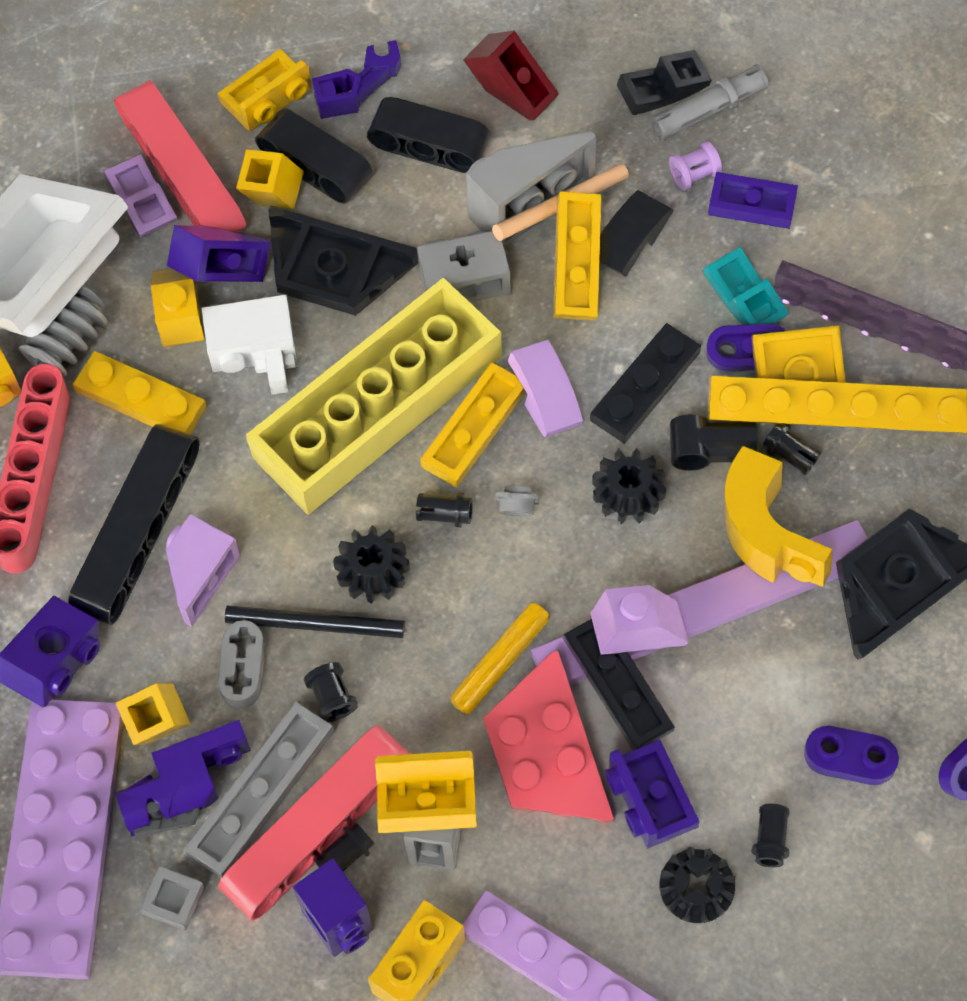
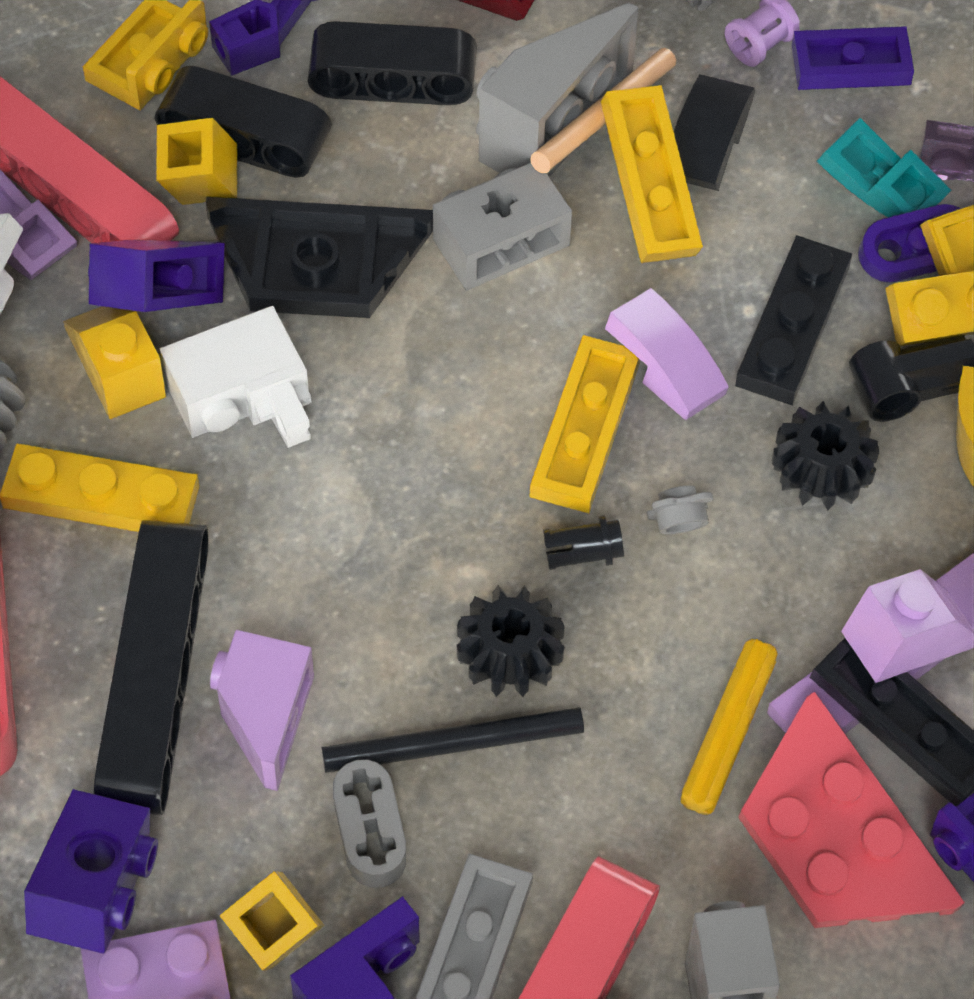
camera: 20 degrees left, 5 degrees down
(330, 691) = (512, 828): black bush -> none
(375, 395) = (439, 415): light yellow brick -> none
(425, 791) = (727, 919): yellow bracket -> none

